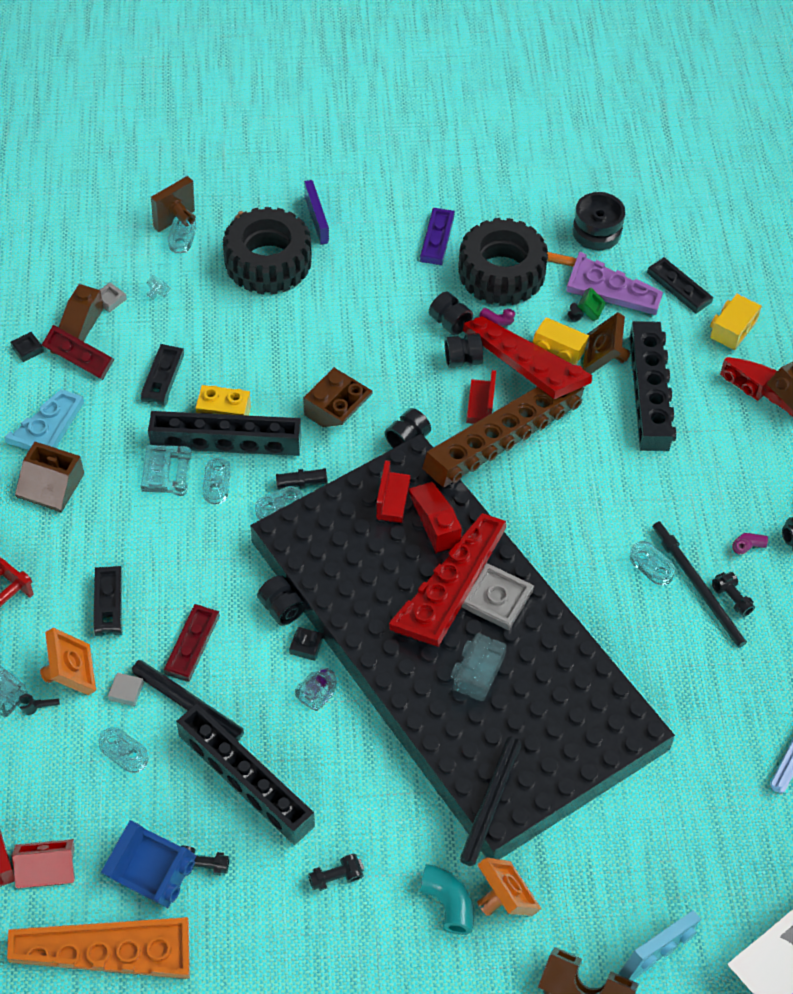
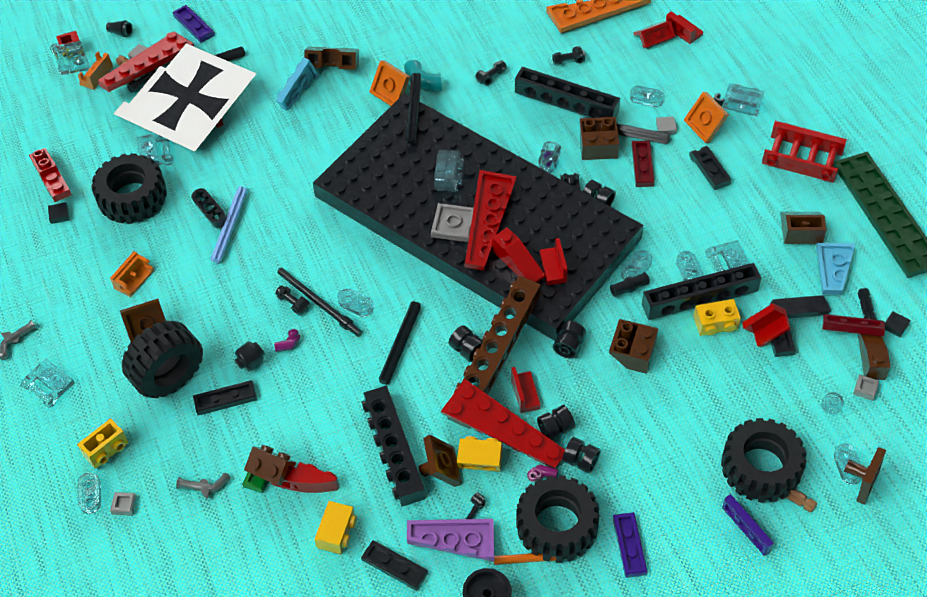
camera: 165 degrees right, 0 degrees up
(44, 373) = (866, 304): none -> black axle
(122, 385) = (803, 306): none -> black tile
(149, 864) = (593, 42): blue panel -> none
(175, 371) = (767, 324): none -> red panel
(236, 683) = (599, 138): none -> reddish brown slope
(530, 463) = (465, 342): none -> black wheel
(591, 304) = (466, 508): green tile -> none
(608, 501) = (399, 343): none -> black axle

